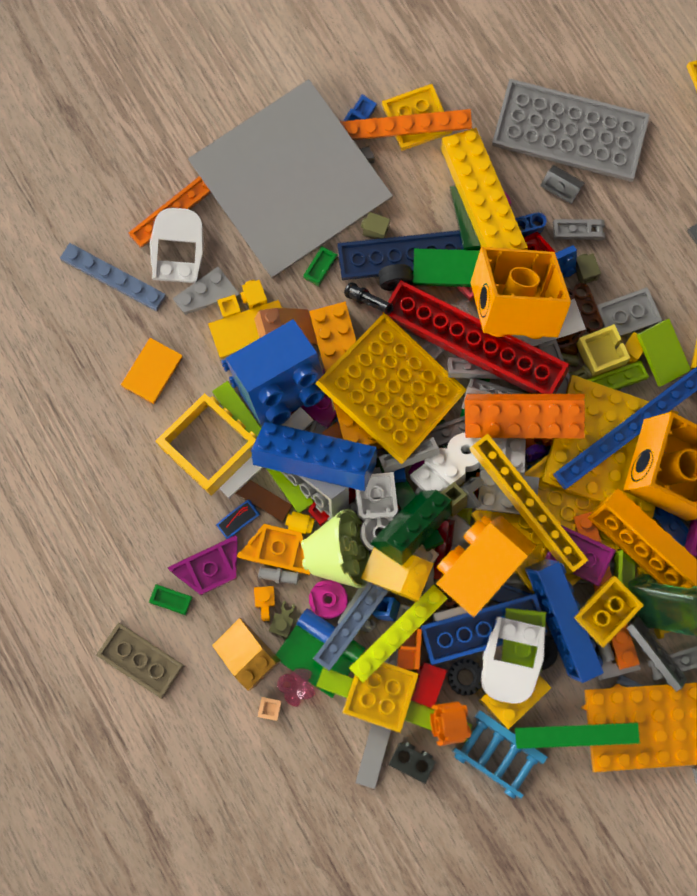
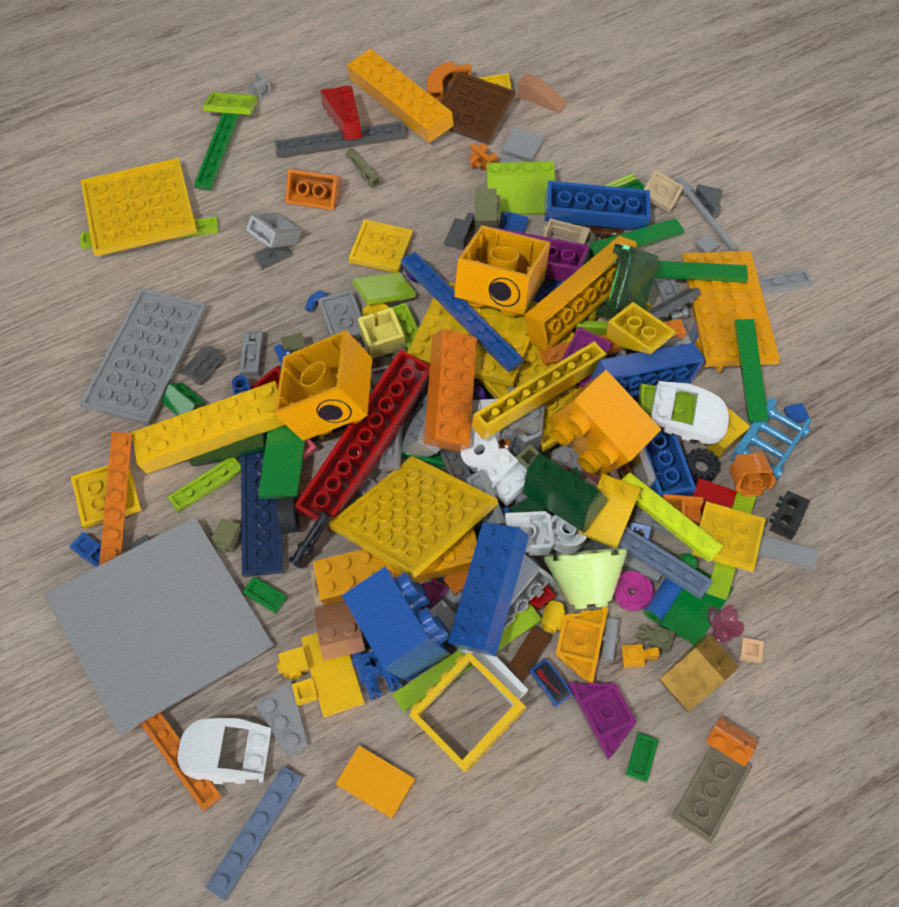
camera: 85 degrees left, 15 degrees down
(180, 679) = (732, 741): none -> orange brick
(430, 202) = (205, 484): none -> lime tile
(520, 172) = (181, 399): none -> green panel
(535, 788) = (796, 412): none -> blue tile
(652, 286) = (313, 299): none -> blue arm

